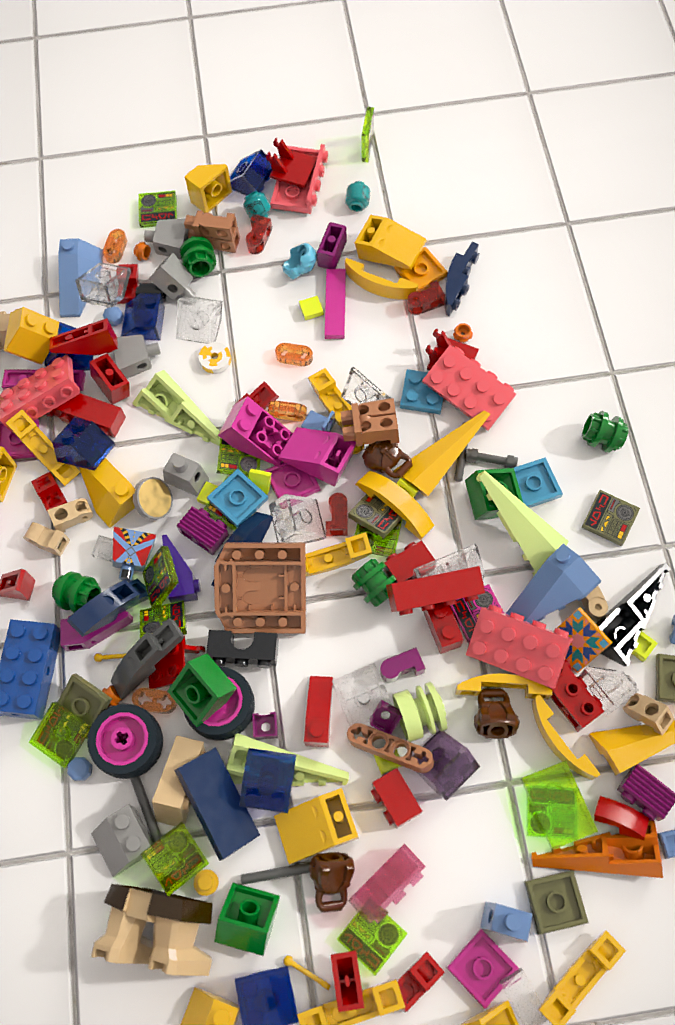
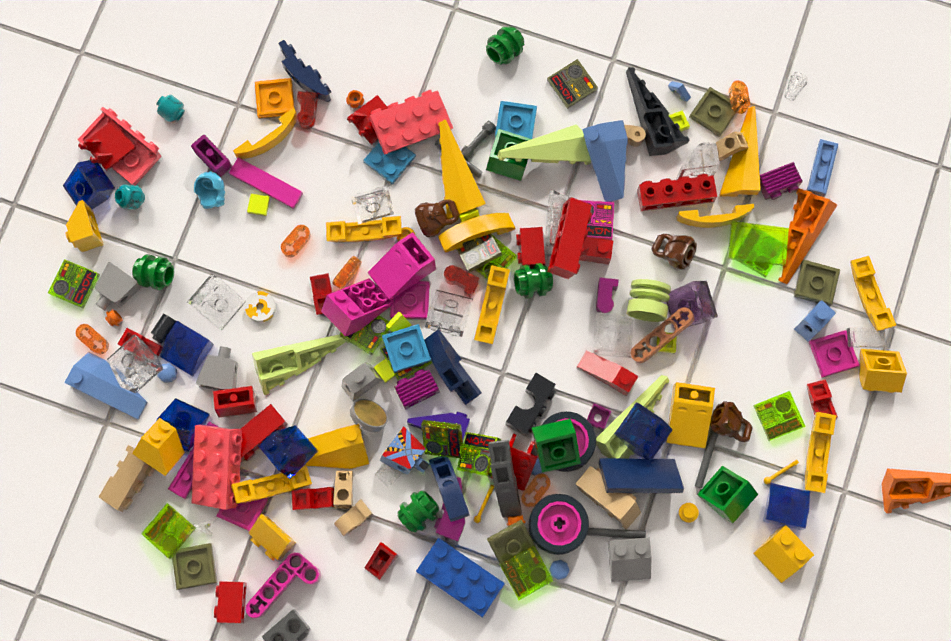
camera: 65 degrees left, 10 degrees up
(87, 340) = (193, 402): red slope -> none
(173, 278) = (164, 303): light grey torso -> none
(174, 858) = (663, 525): clear neon green tile -> none
(174, 931) = (711, 539): tan piece -> none
(218, 230) = (138, 244): nougat hips -> none
(259, 234) = (161, 212): clear red leg -> none
(261, 587) = (494, 365): nougat wedge -> none
(319, 422) = (373, 253): medium blue bracket -> none
(347, 981) = (802, 445): red slope -> none
(367, 134) = (113, 65): clear neon green tile -> none
(371, 422) = (405, 211): nougat hips -> none
(387, 724) = (643, 327): magenta piece -> none
(387, 885) = (753, 386): clear pink brick -> none
(388, 243) = (239, 108): yellow slope -> none
(396, 798) = (698, 350): red brick -> none
(519, 645) = (637, 204): coral bracket -> none
(532, 688) = (669, 215): yellow slope -> none
(587, 639) = (654, 161): tile -> none
(629, 820) = (785, 207): red slope -> none

